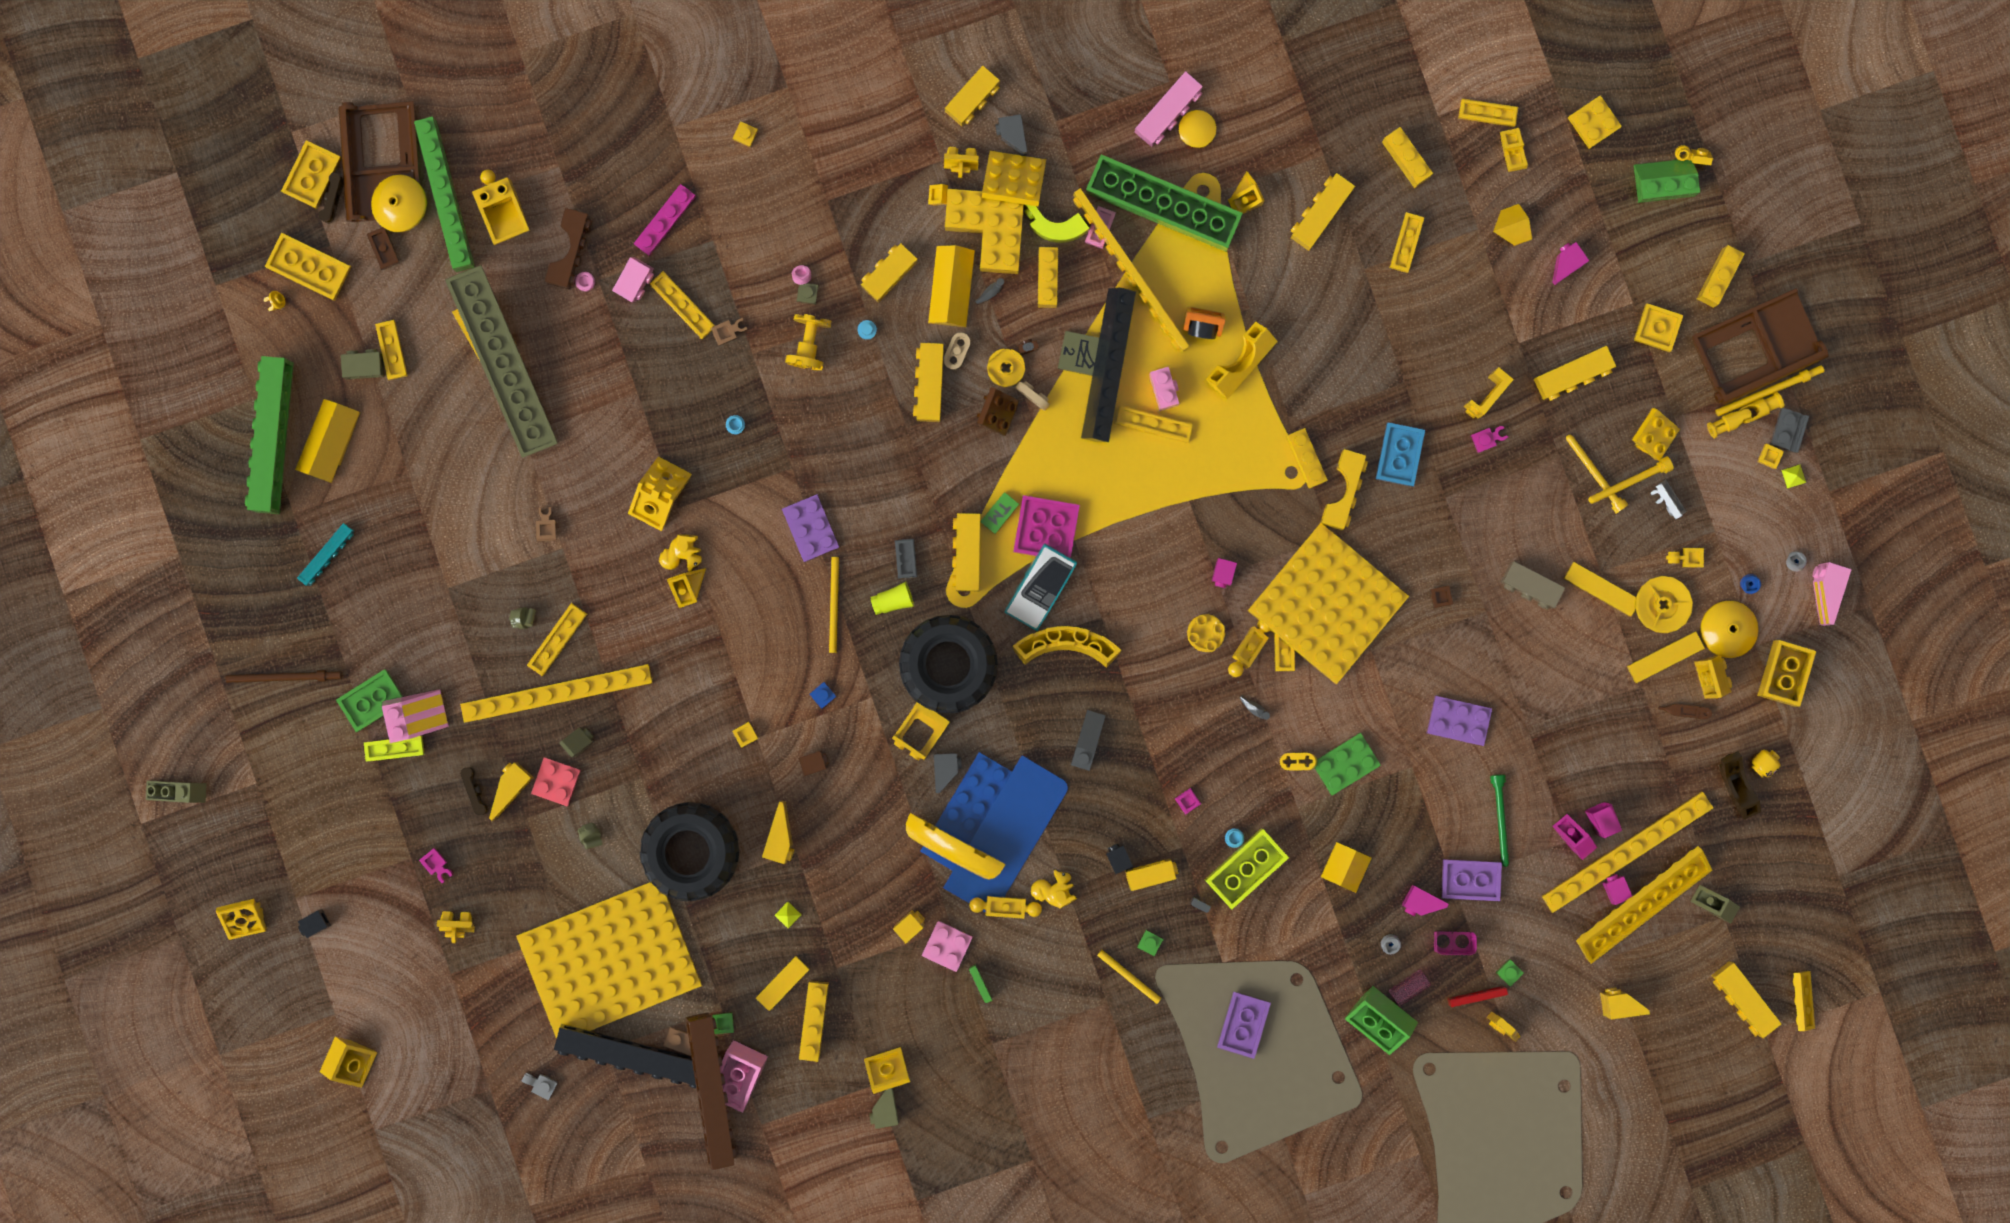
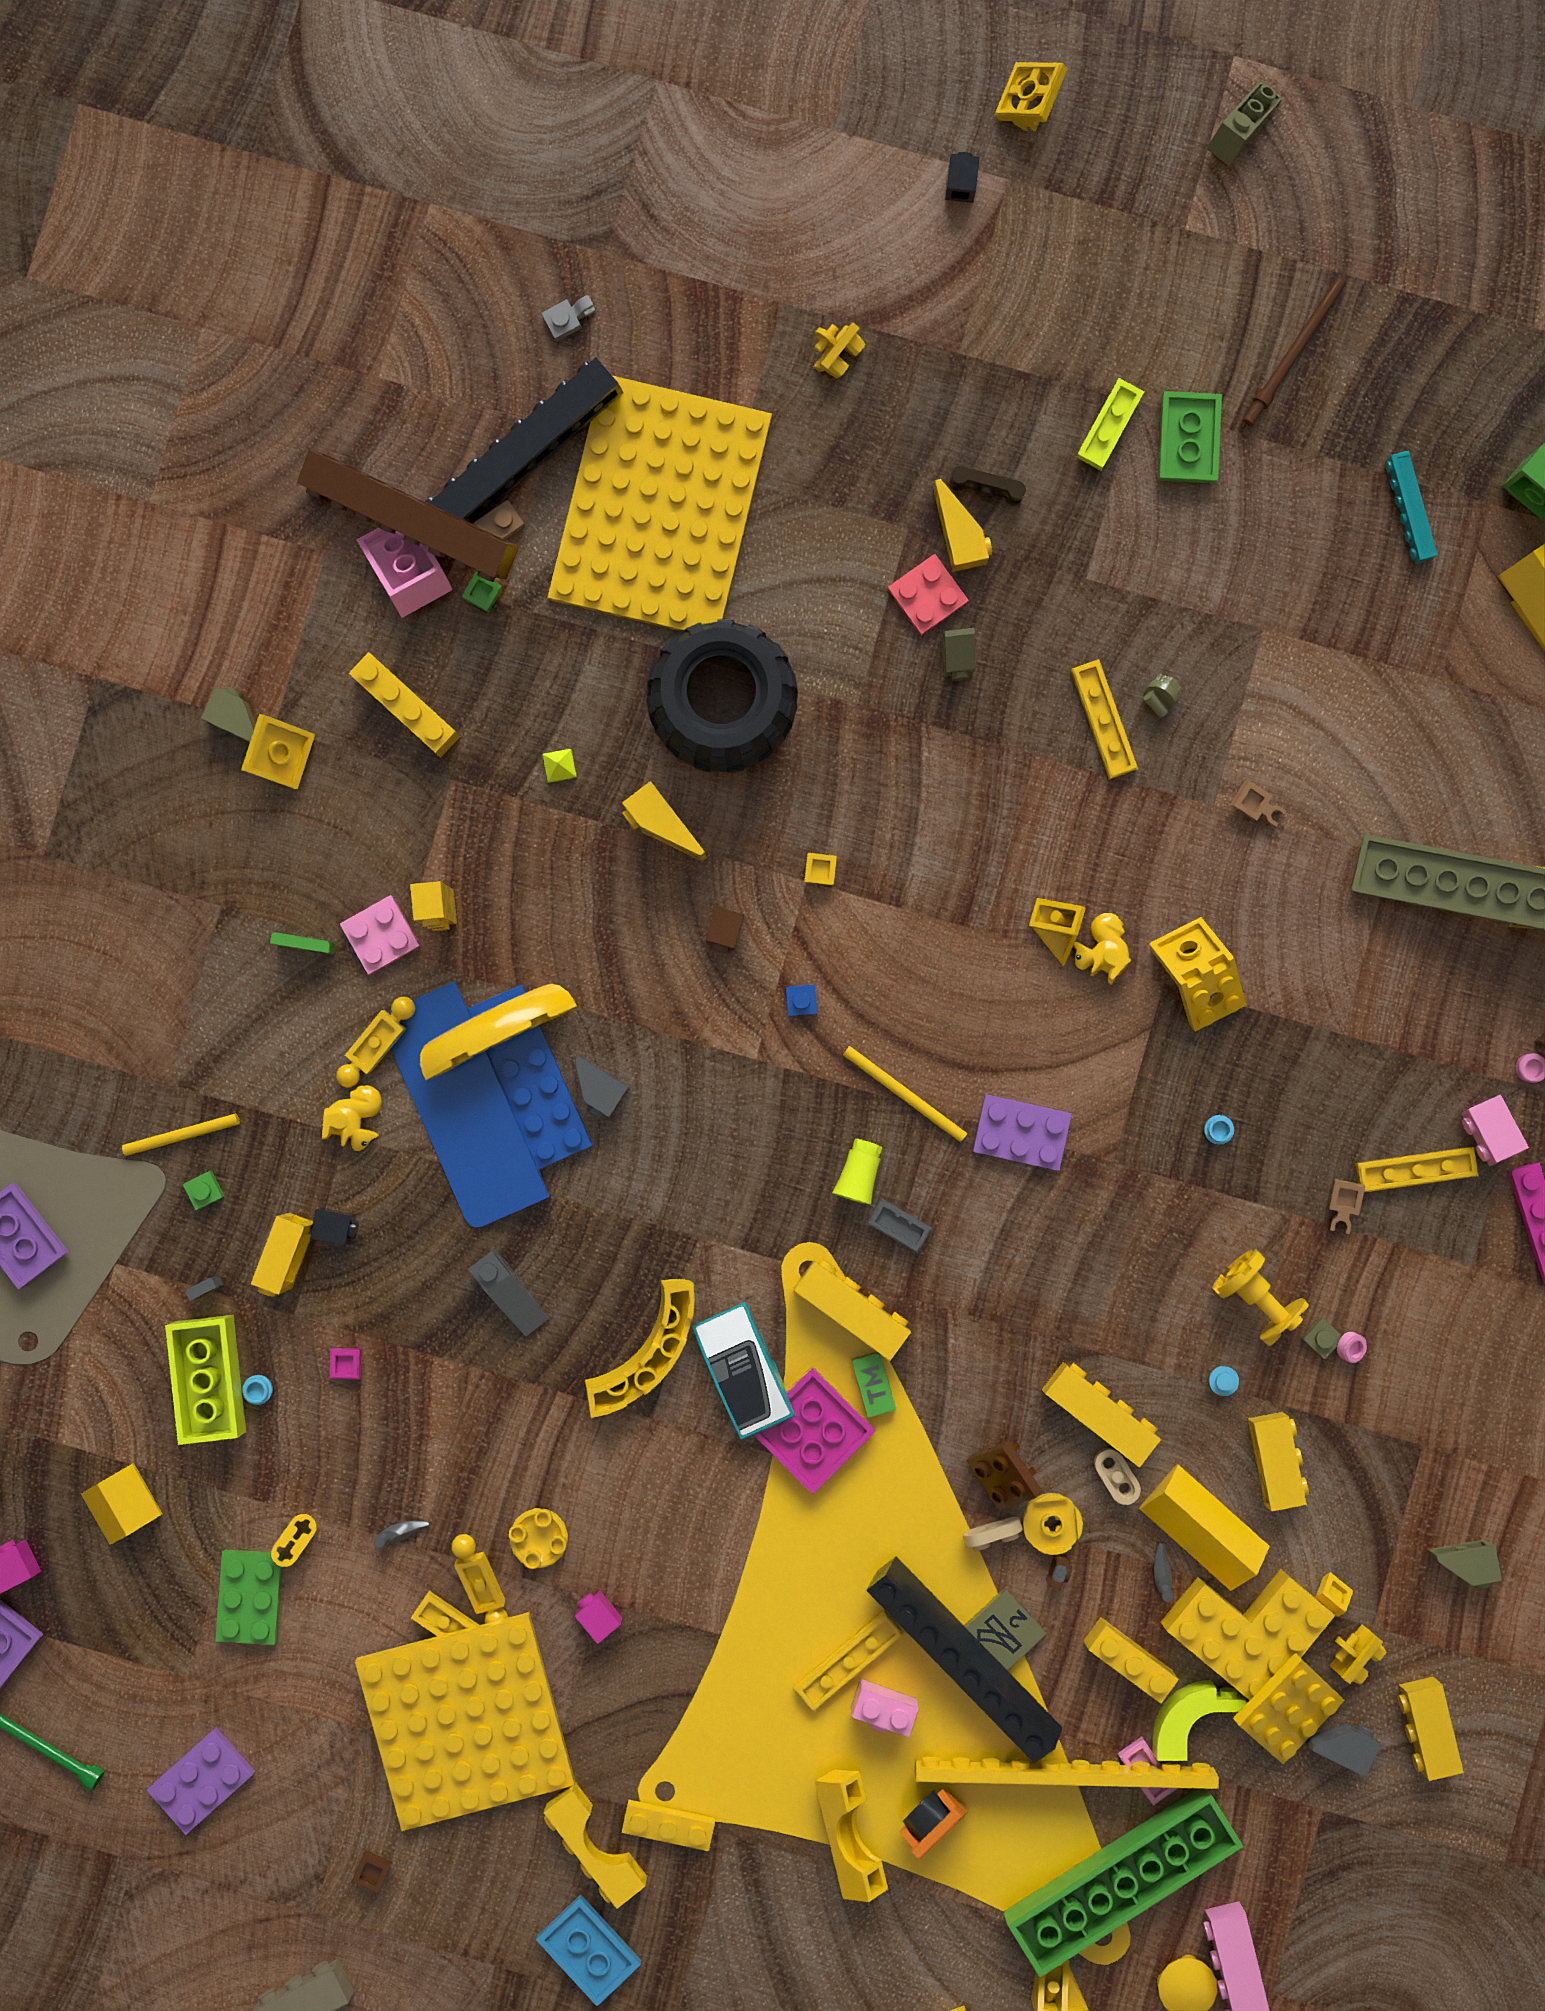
camera: 125 degrees right, 0 degrees up
(348, 1062) = (762, 101): yellow slope -> none
(414, 715) = (1134, 475): bright pink slope -> none
(434, 862) = (932, 375): dark pink plate -> none
(556, 693) = (1037, 672): yellow plate -> none
(590, 836) = (830, 589): olive piece -> none
(782, 983) = (479, 699): yellow tile -> none
(871, 135) = (1472, 1561): none -> olive slope
(930, 718) = (678, 1114): yellow window -> none
(982, 664) = (737, 1135): black tyre -> none

